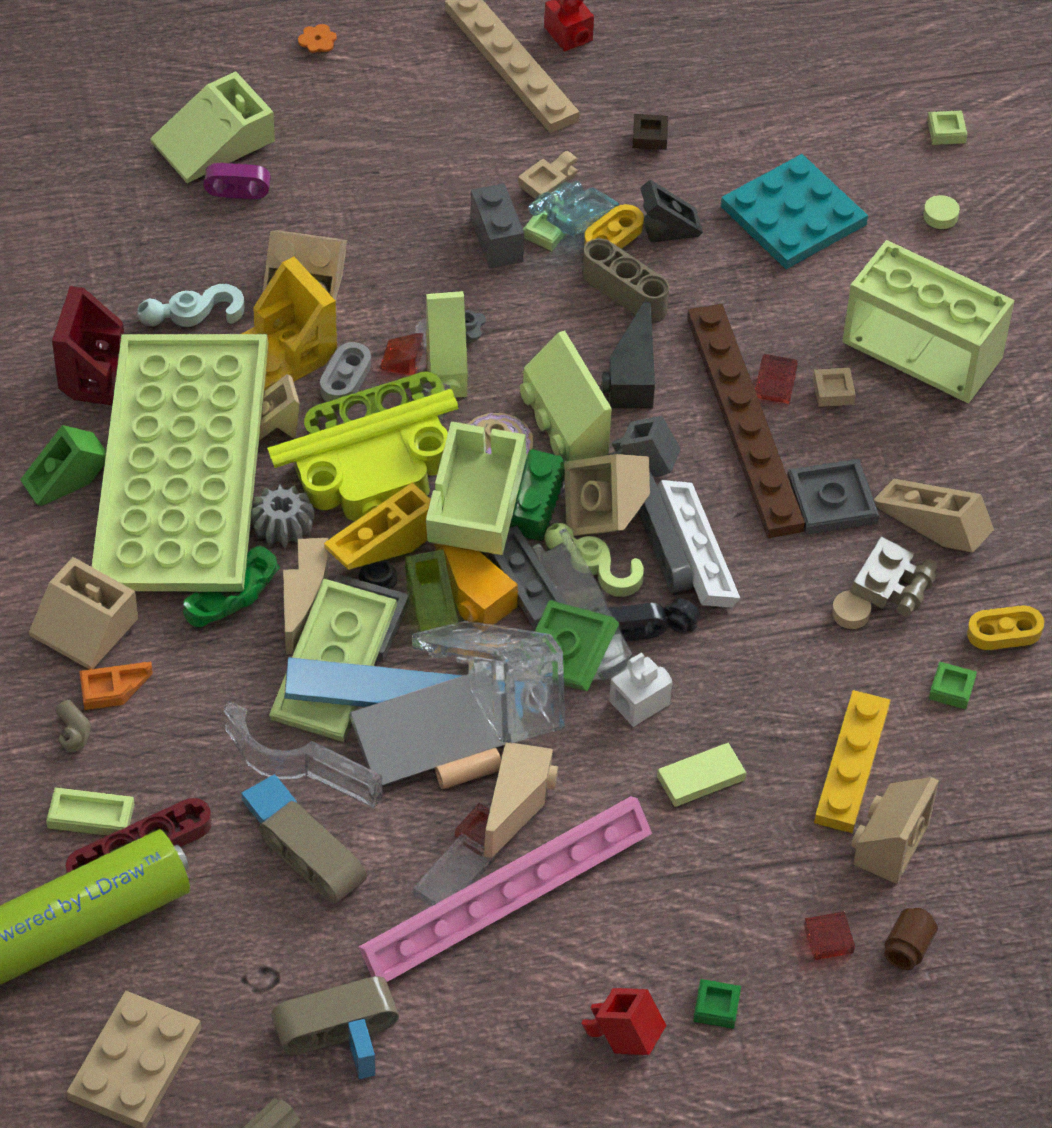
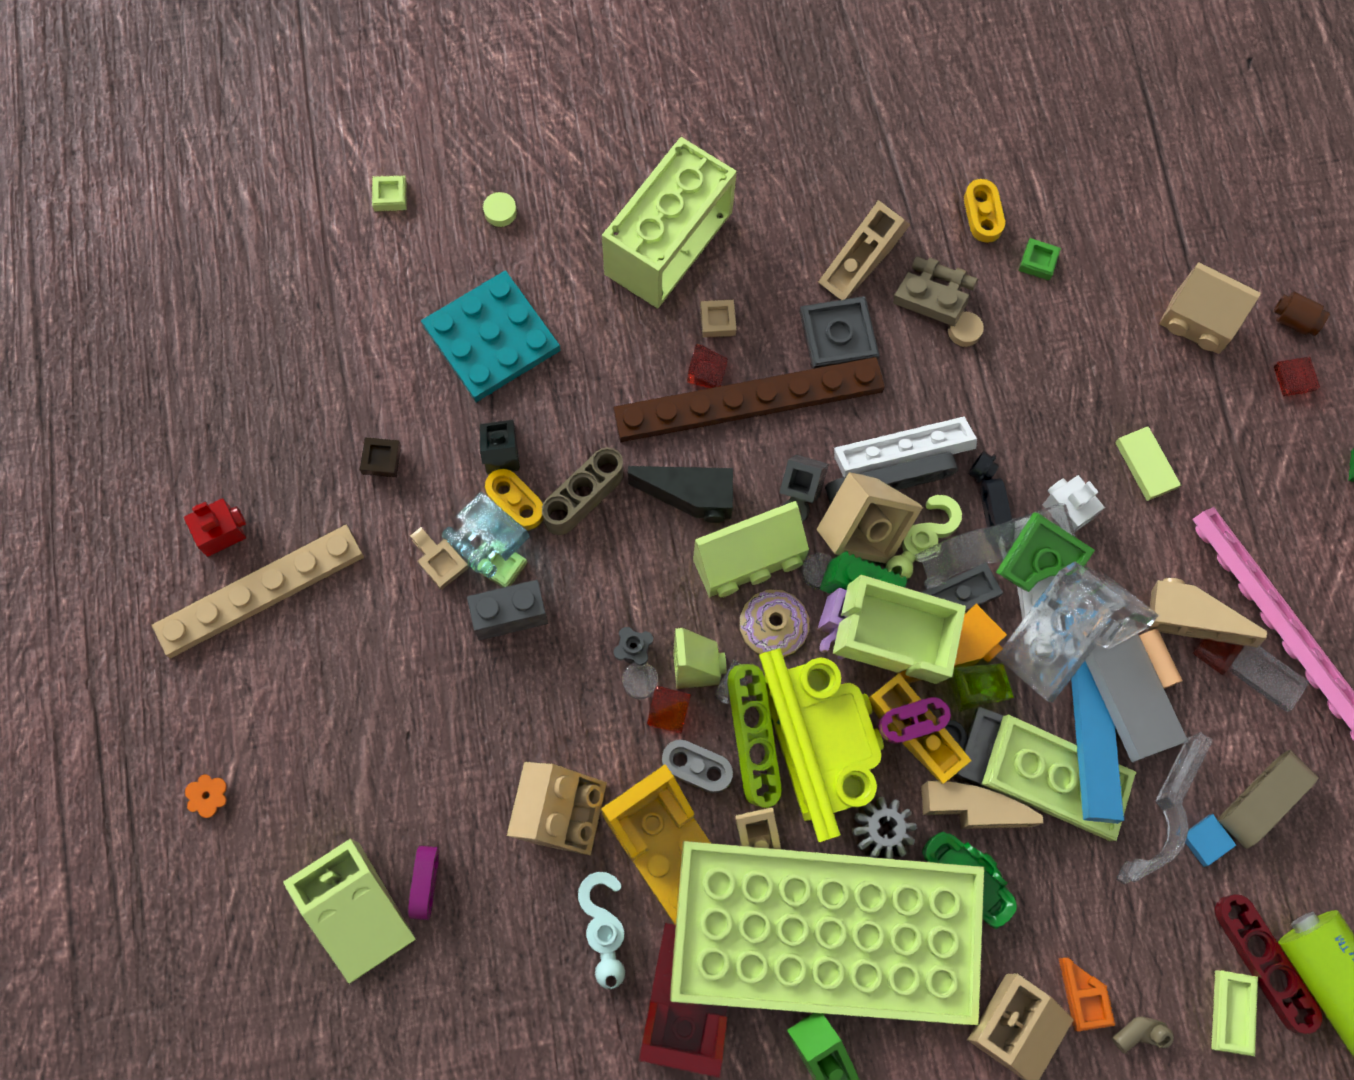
camera: 90 degrees left, 20 degrees up
(379, 512) = (911, 712): none -> magenta beam
(852, 761) = (1123, 343): yellow plate -> none

